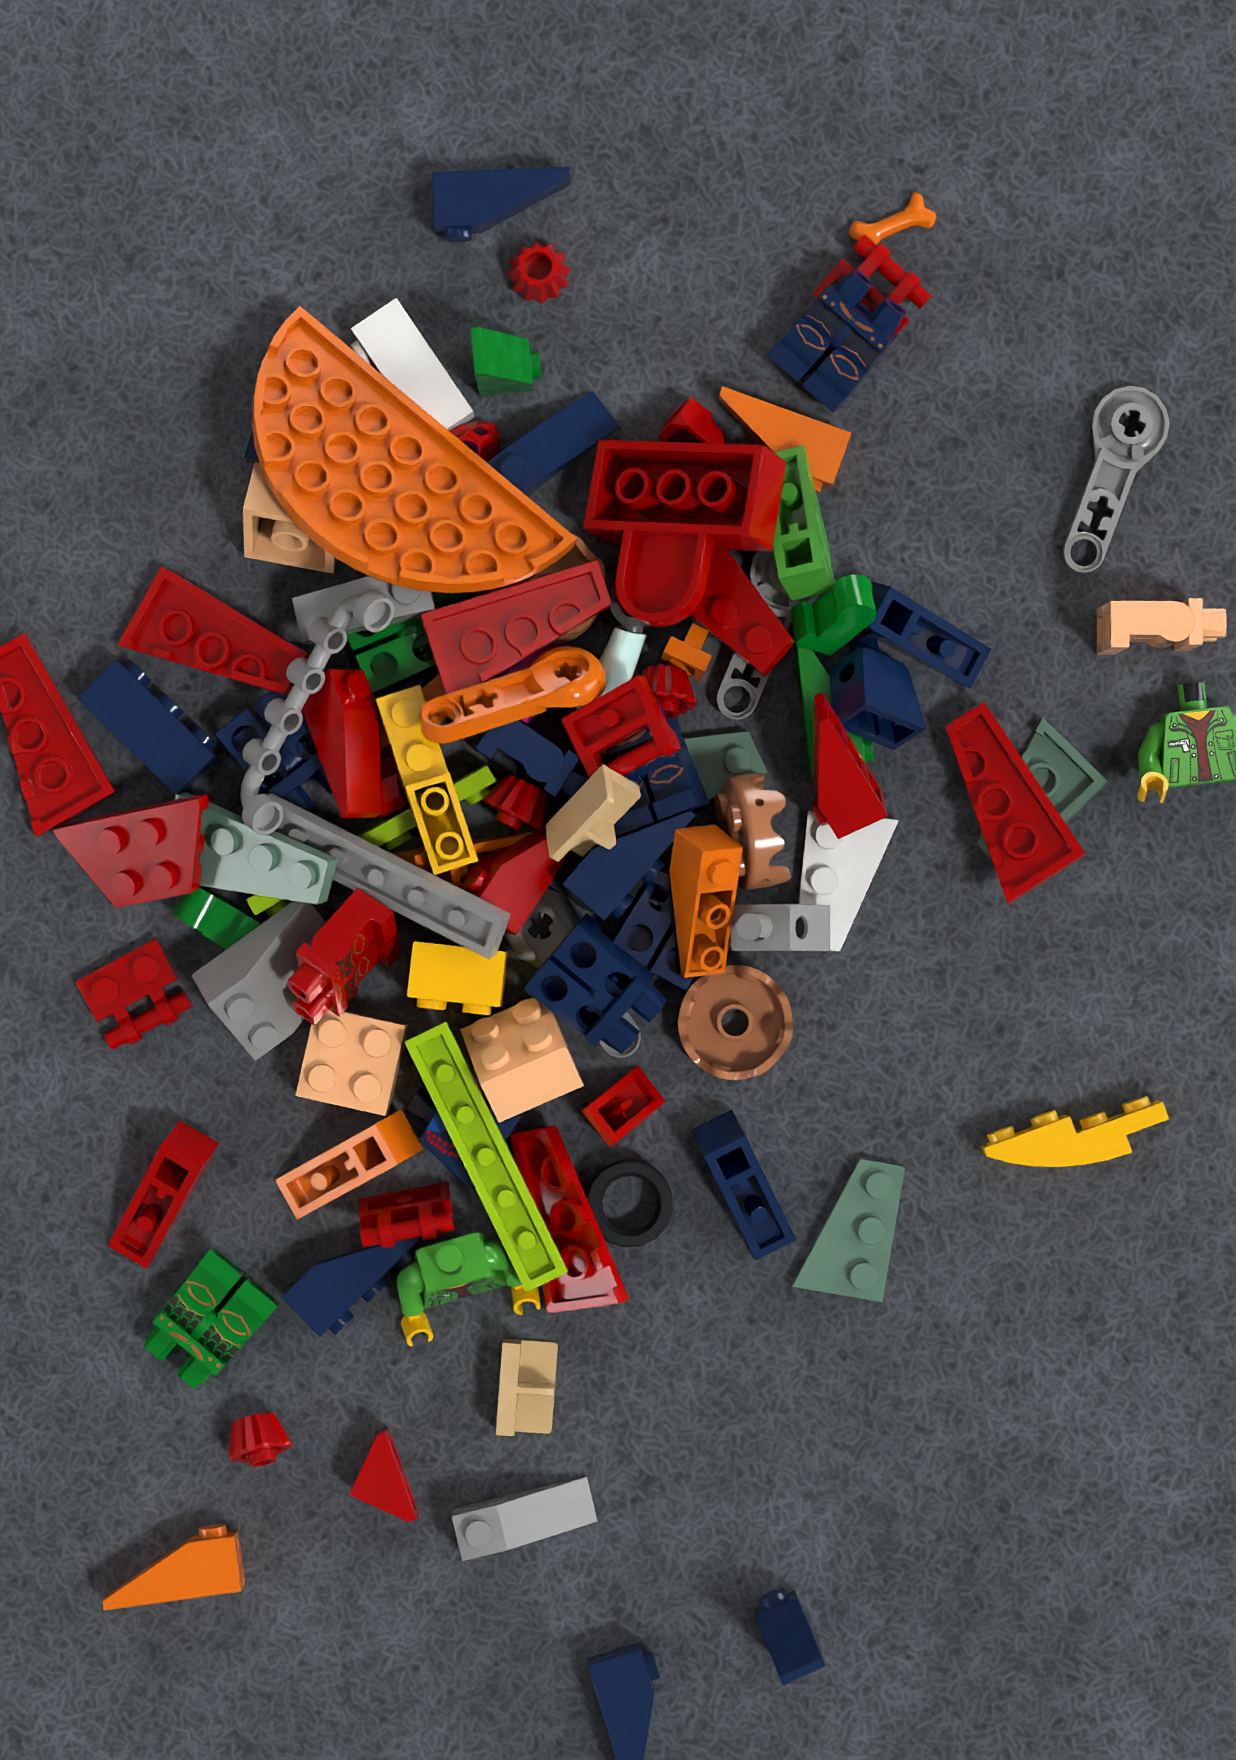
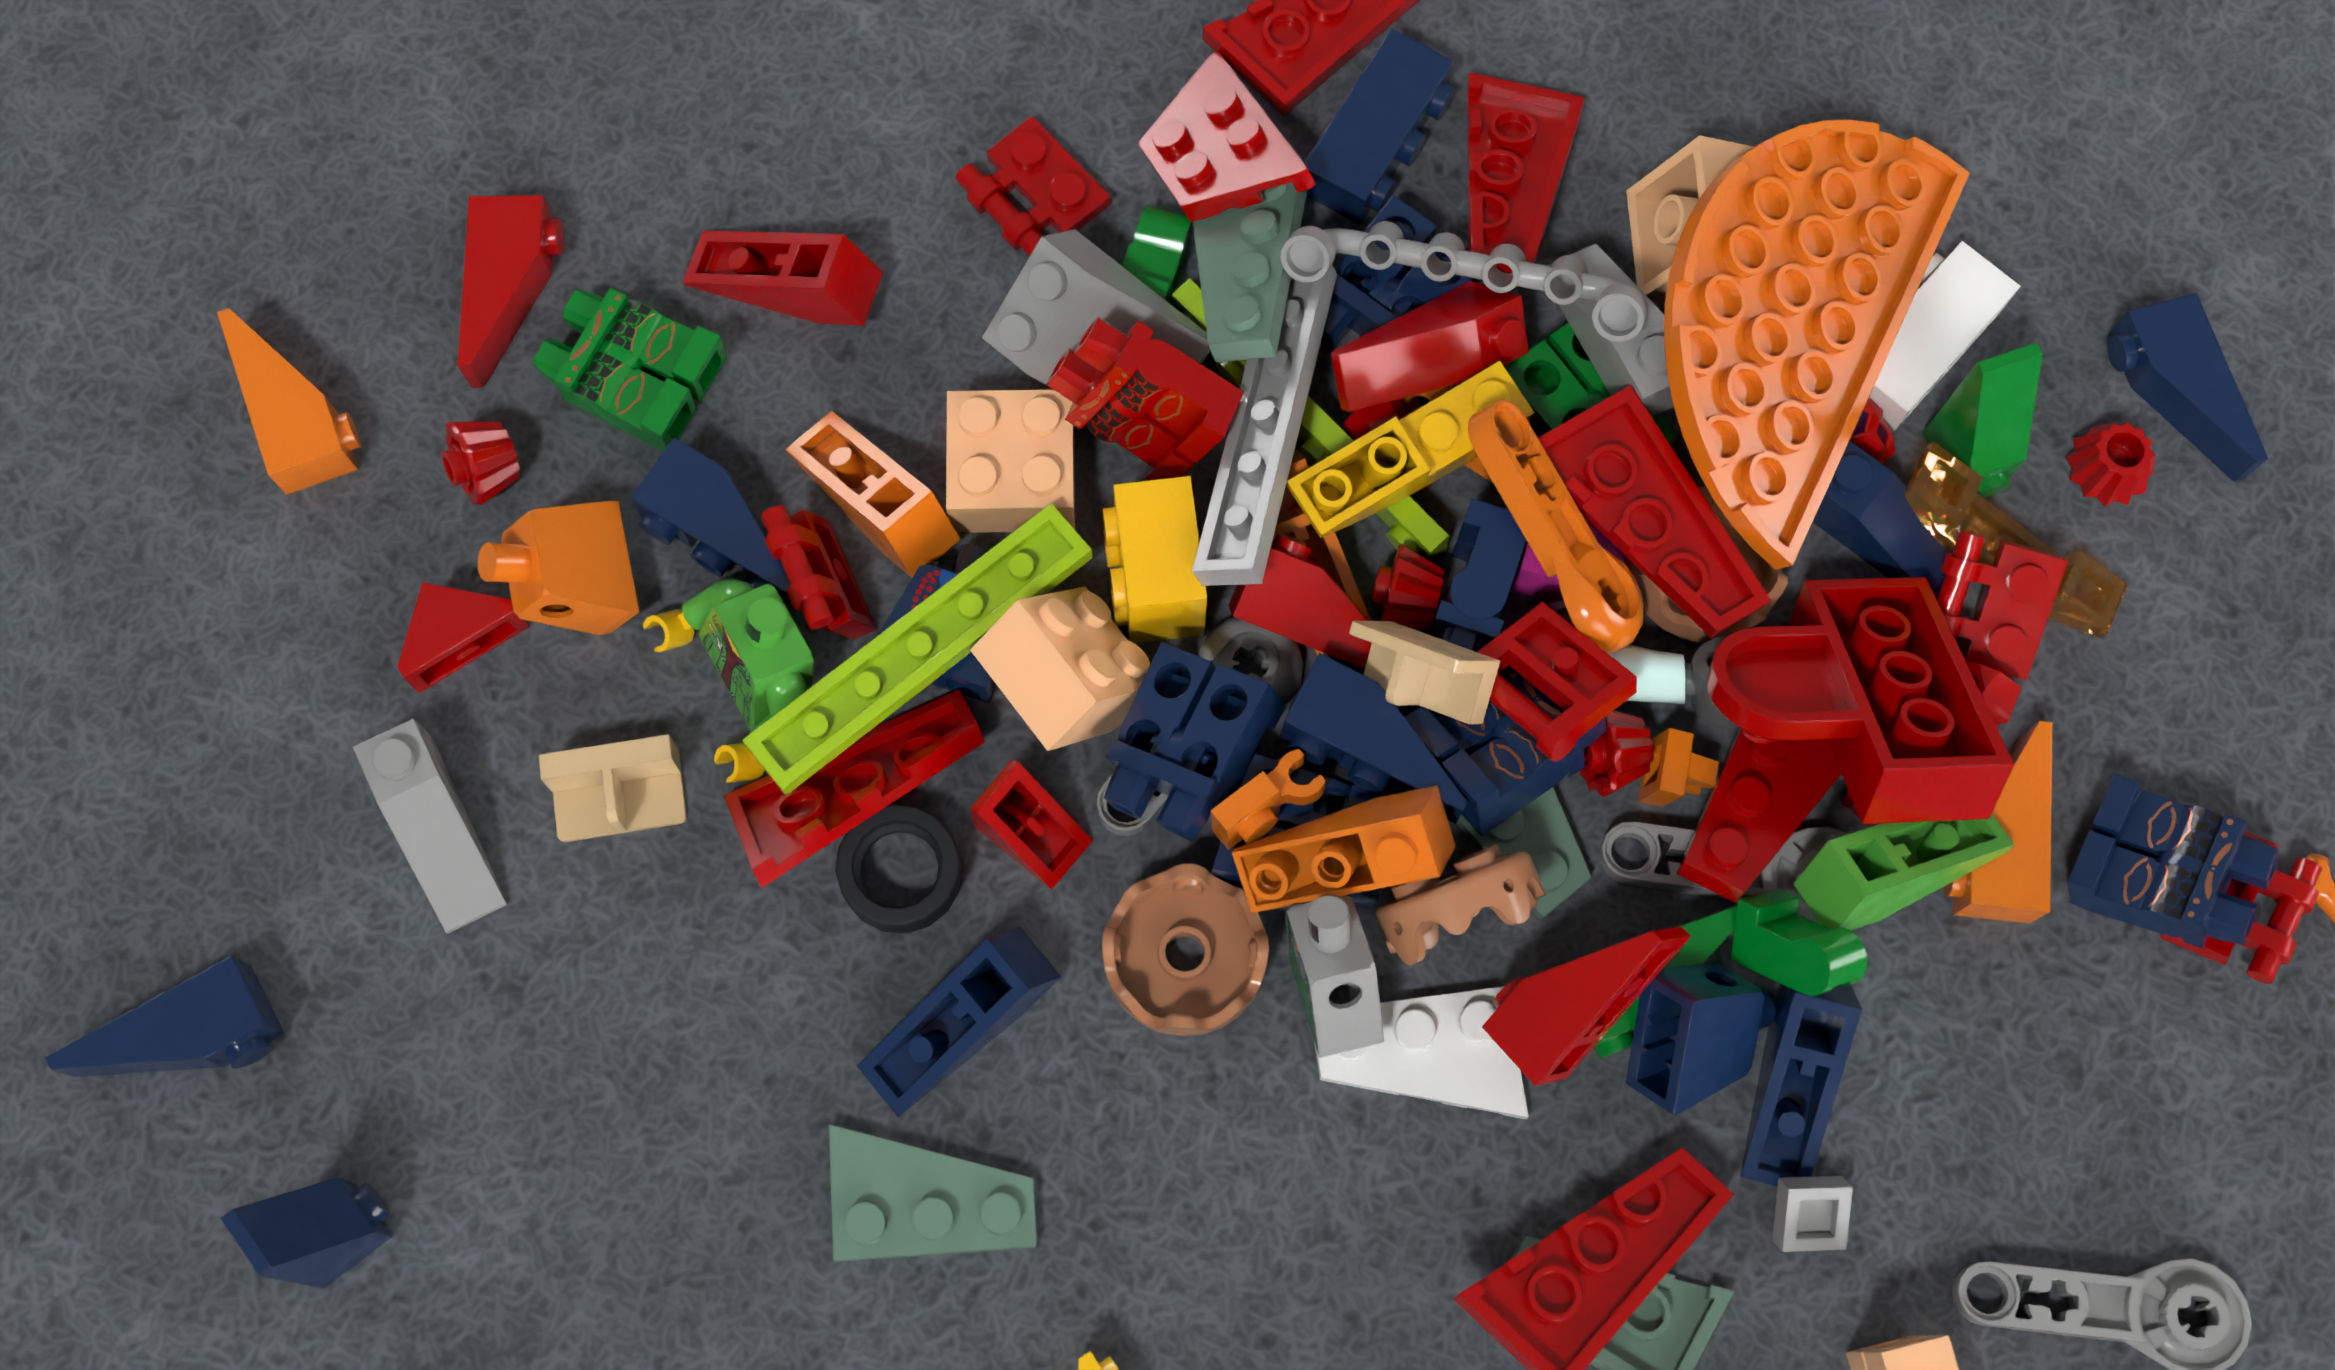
camera: 80 degrees right, 15 degrees down
(110, 1396) = (504, 273): none -> red slope
(361, 1391) = (566, 567): none -> orange torso
(588, 369) = (1947, 501): none -> clear orange slope
(634, 384) = (2012, 605): none -> red plate
(659, 957) = (1253, 807): none -> orange plate
(1006, 651) = (1812, 1213): none -> light grey plate

